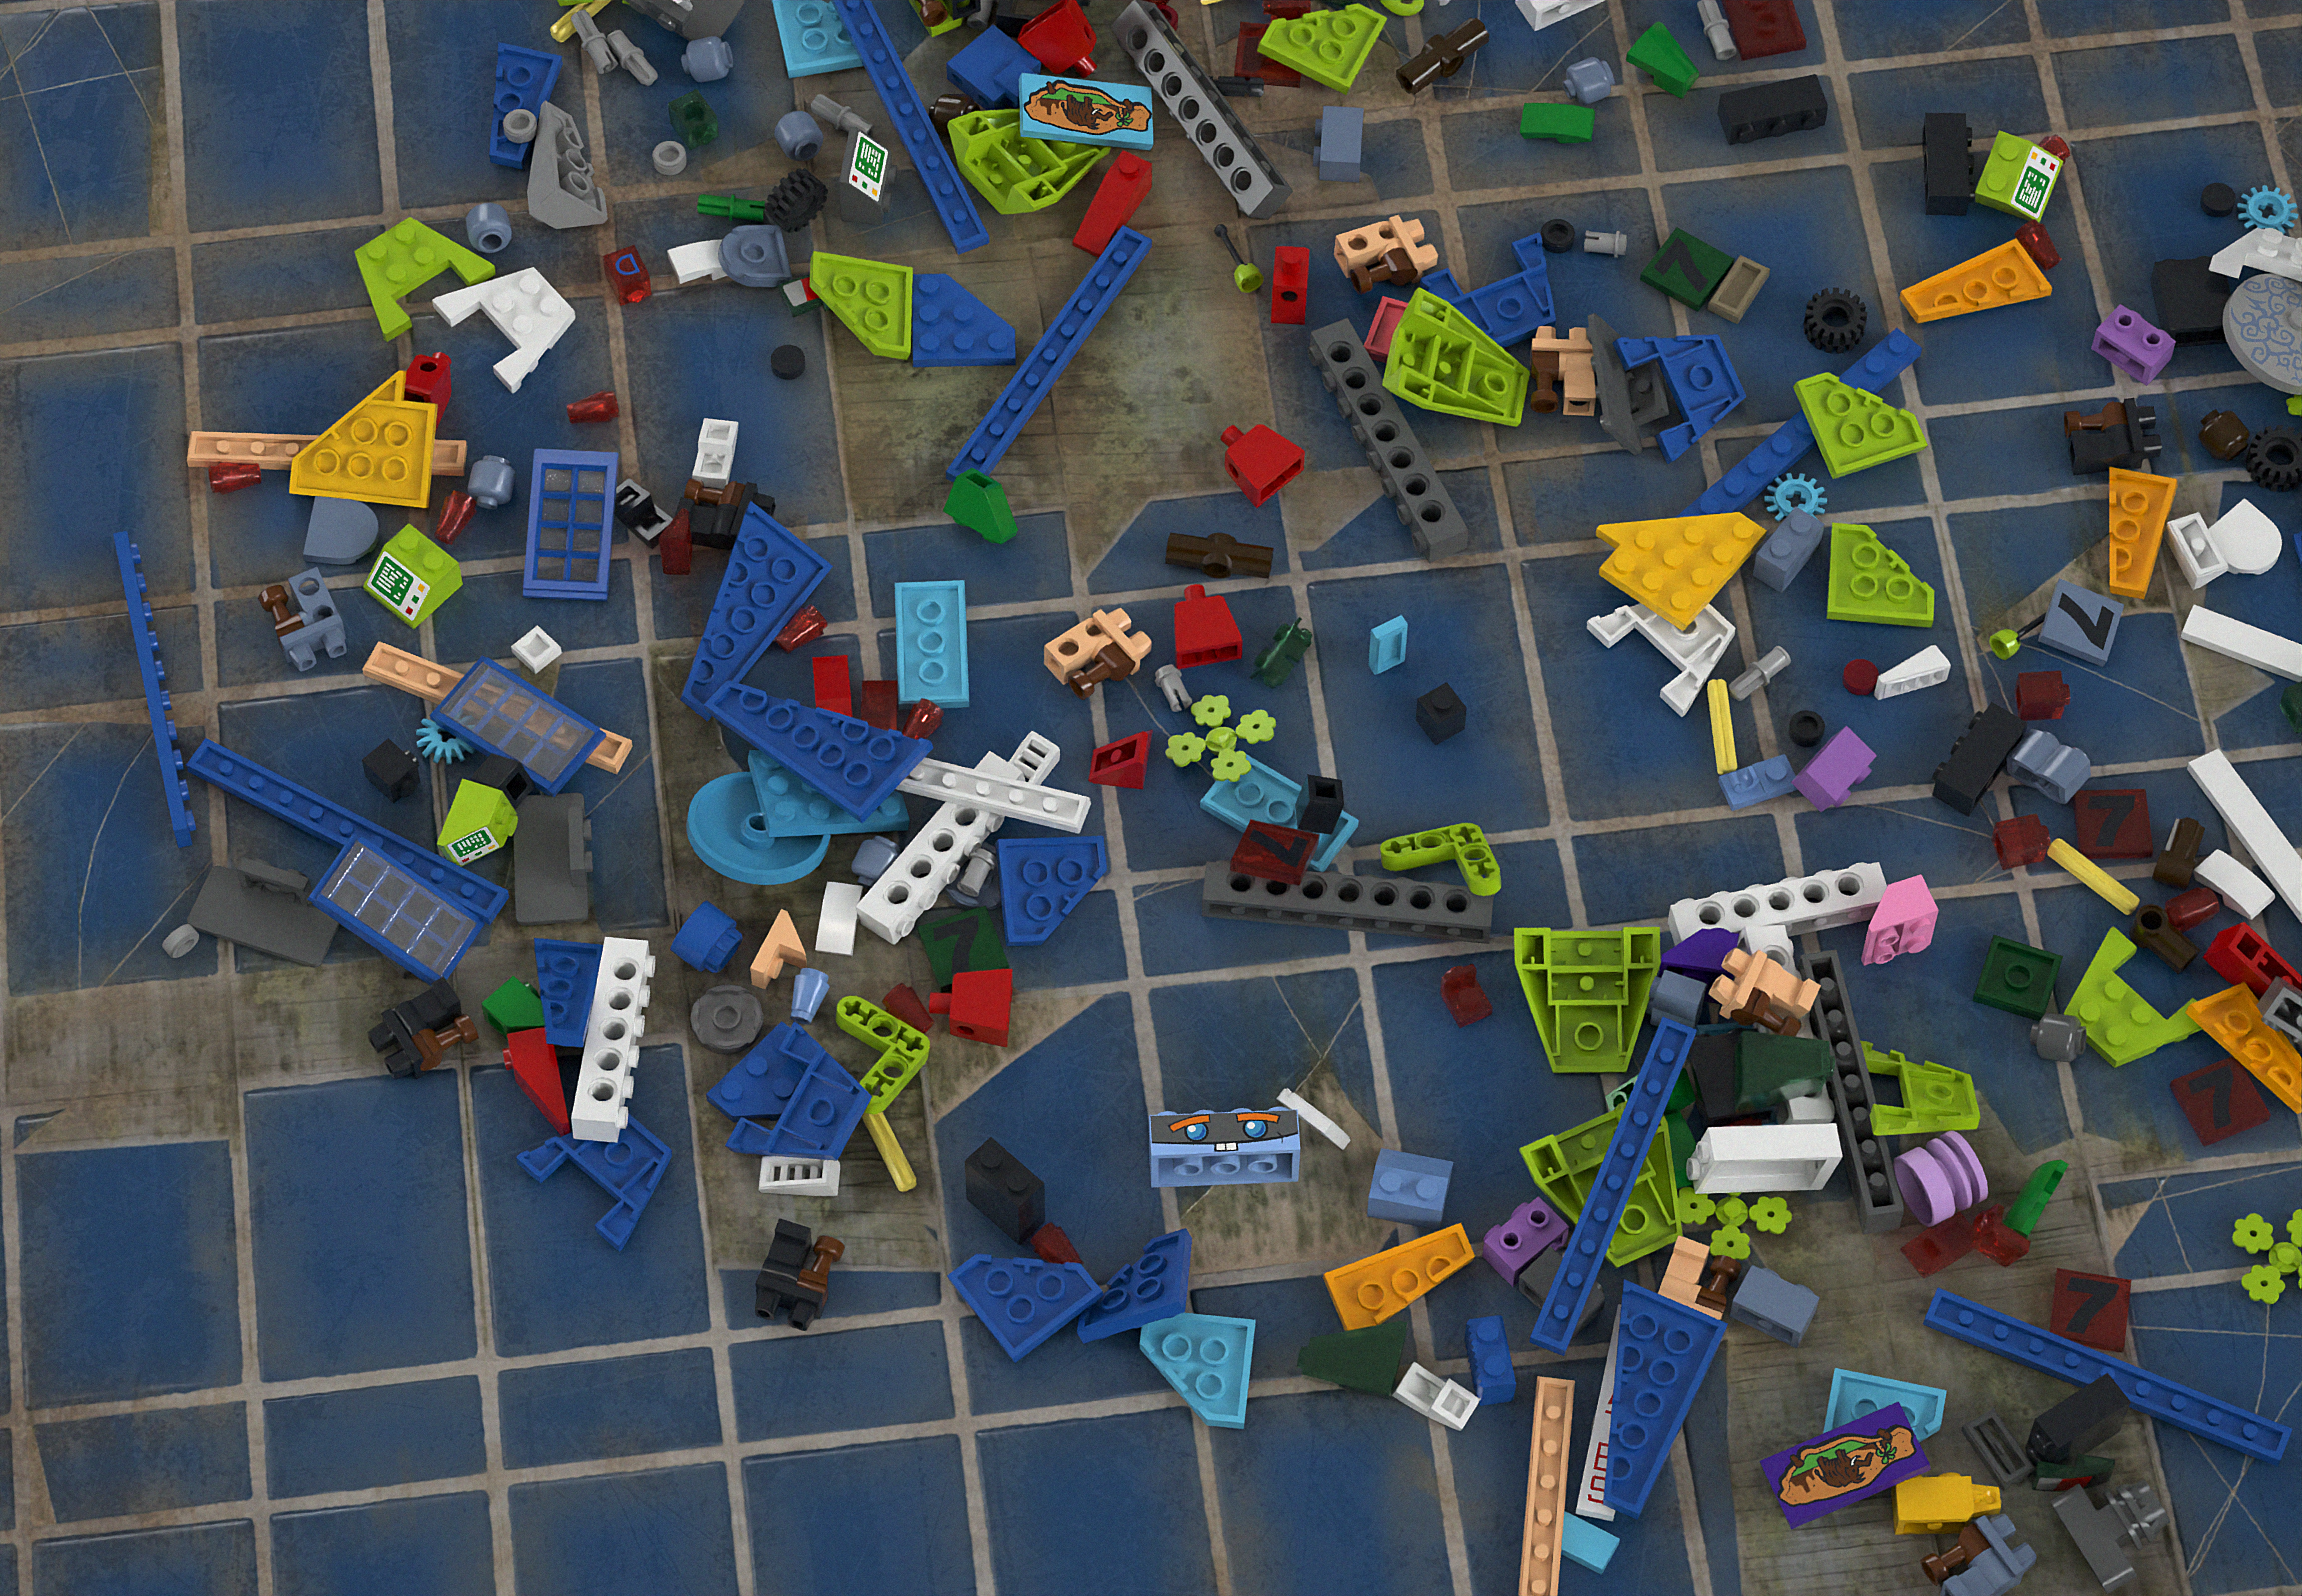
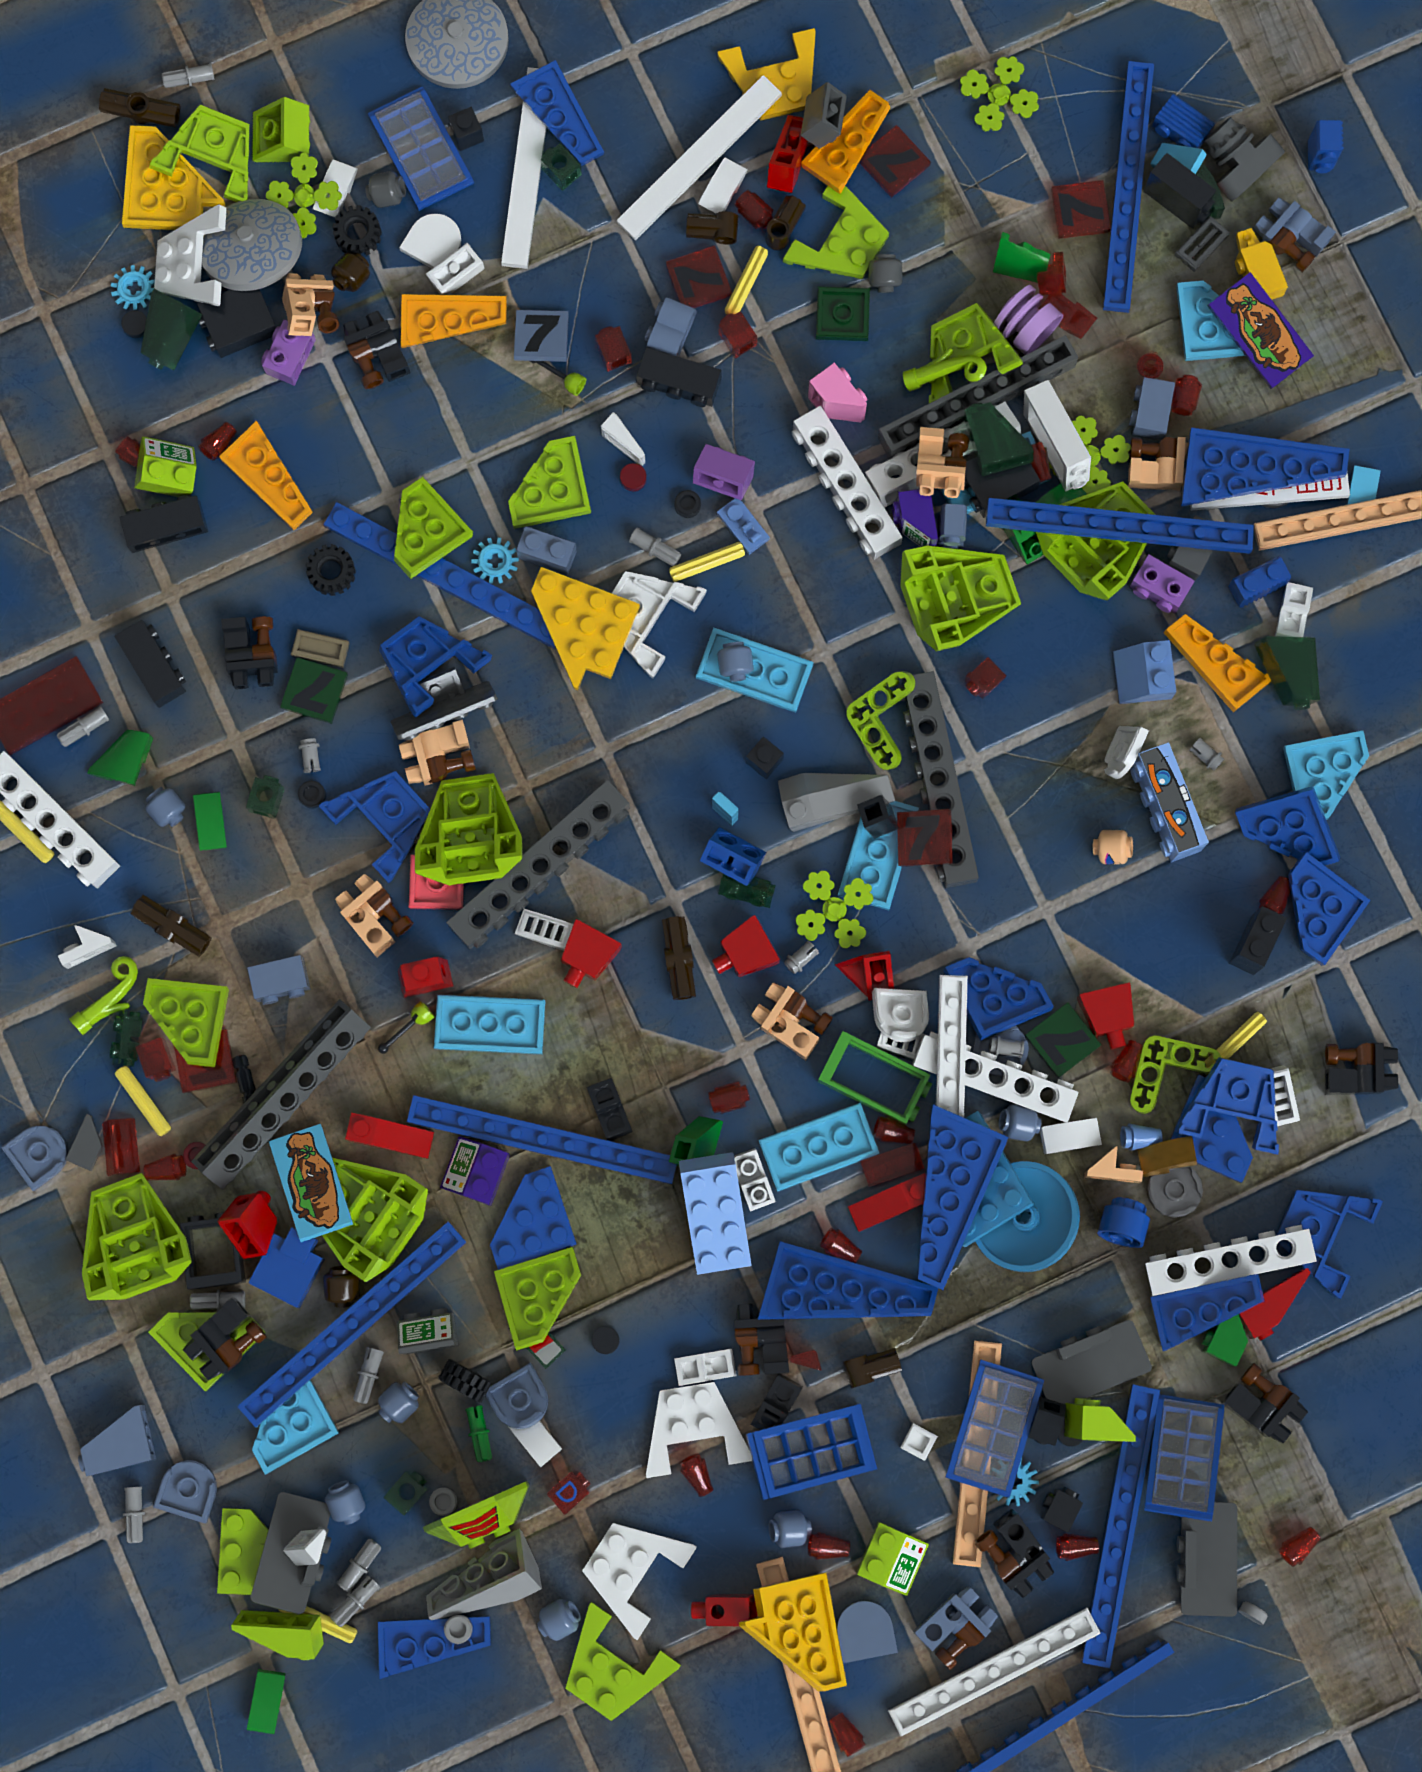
camera: 105 degrees left, 20 degrees up
(236, 646) = (994, 1671): none -> white tile
(236, 1017) = (1299, 1546): none -> clear red cone
(342, 774) = (1075, 1546): none -> clear red cone
(358, 713) = (1023, 1557): none -> black hips
(632, 173) = (481, 1519): none -> lime wedge
(644, 615) = (867, 1368): none -> dark brown piece
(664, 423) = (692, 1415): none -> white wing
(770, 1013) = (1167, 1155): none -> pearl gold slope
(890, 490) = (715, 1213): none -> light blue brick
(913, 564) = (753, 1180): none -> white slope
(1020, 676) = (846, 1039): none -> bright green window
(1027, 561) = (729, 1097): none -> clear red brick
(1034, 283) = (475, 1171): none -> dark purple slope
(1062, 763) = (900, 1013): none -> white tile
(1063, 439) = (609, 1109): none -> black slope
(1190, 1075) = (1113, 847): none -> light nougat head
(1210, 344) = (489, 1024): none -> medium azure tile
(1276, 1227) = (1207, 754): none -> light grey pin
(1316, 433) = (561, 944): none -> white slope
(1325, 641) = (733, 856): none -> blue brick
(1369, 763) = (824, 797): none -> light grey wedge
(1561, 743) = (776, 676): none -> medium azure tile
(1564, 172) = (270, 807): none -> clear green brick
(1575, 708) = (735, 661): none -> sand blue head
(1755, 210) = (248, 659): none -> black hips
(1781, 1353) = (1186, 395): none -> clear red brick
(1836, 1314) = (1150, 370): none -> clear red cone
(1900, 1033) = (942, 366): none -> lime plant
(2126, 1443) = (1188, 156): none -> medium azure tile
(2182, 1470) = (1182, 123): none -> blue brick
(2196, 220) = (167, 330): none -> clear green slope
(2199, 366) = (303, 299): none -> light nougat hips

